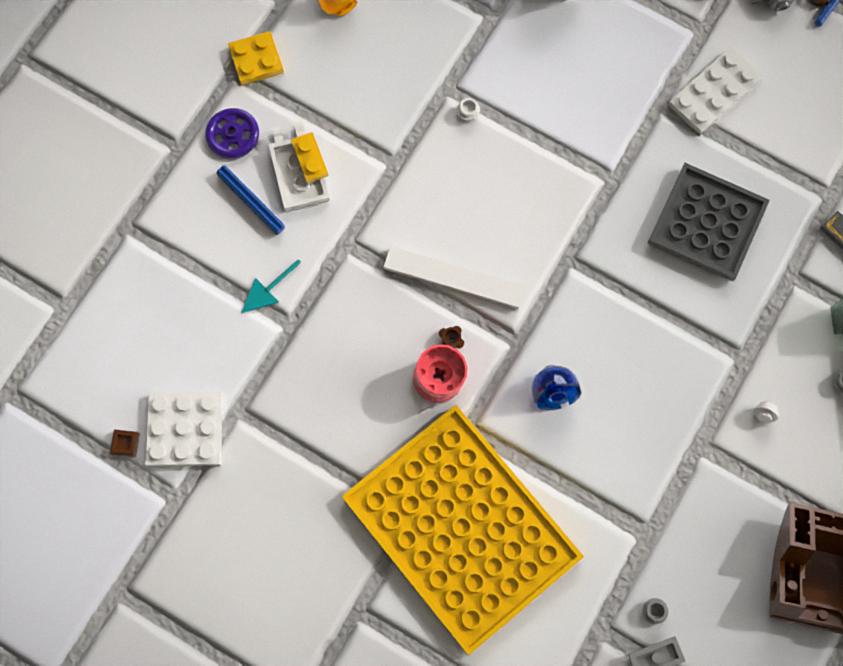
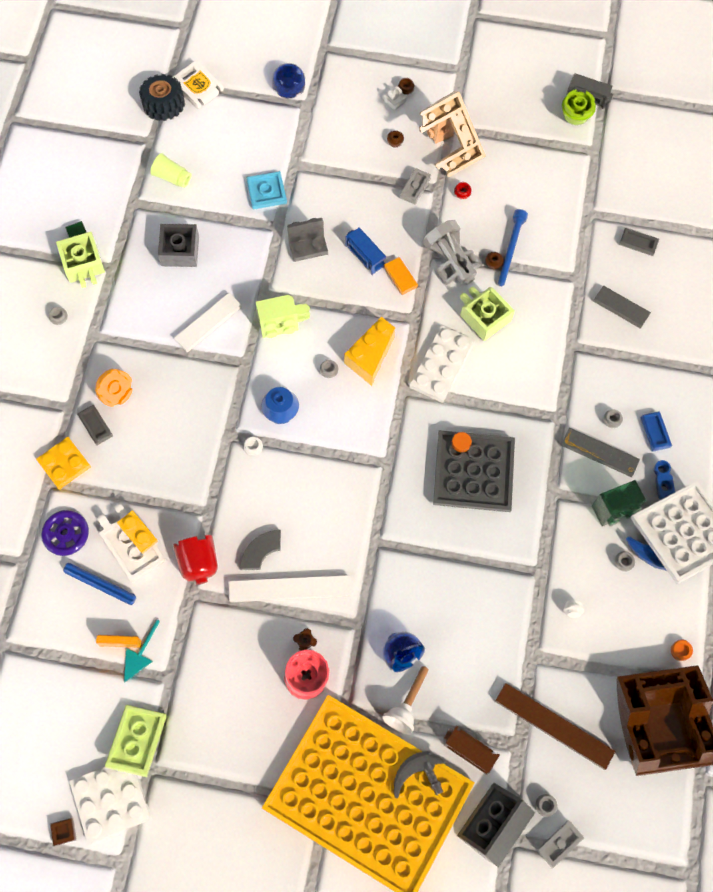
camera: 20 degrees left, 5 degrees down
(232, 377) = (136, 741): none -> yellowish green tile
(250, 267) = (118, 641): none -> light orange tile
(303, 28) = (95, 425): none -> dark grey tile
(364, 208) = (196, 559): none -> red cylinder
(437, 223) = (259, 549): none -> dark grey tile
(514, 74) = (280, 405): none -> blue cone
(526, 512) = (418, 762): none -> dark grey piece
(527, 457) = (401, 717): none -> white piece
(583, 53) = (329, 369): none -> light grey plate
(592, 520) = (470, 749): none -> reddish brown window
(592, 609) = (496, 824): none -> dark grey slope
(638, 47) = (370, 350): none -> yellow wedge
(697, 531) = (555, 726): none -> reddish brown tile
(706, 183) = (461, 442): none -> orange tile
(788, 48) = (486, 312): none -> yellowish green hinge

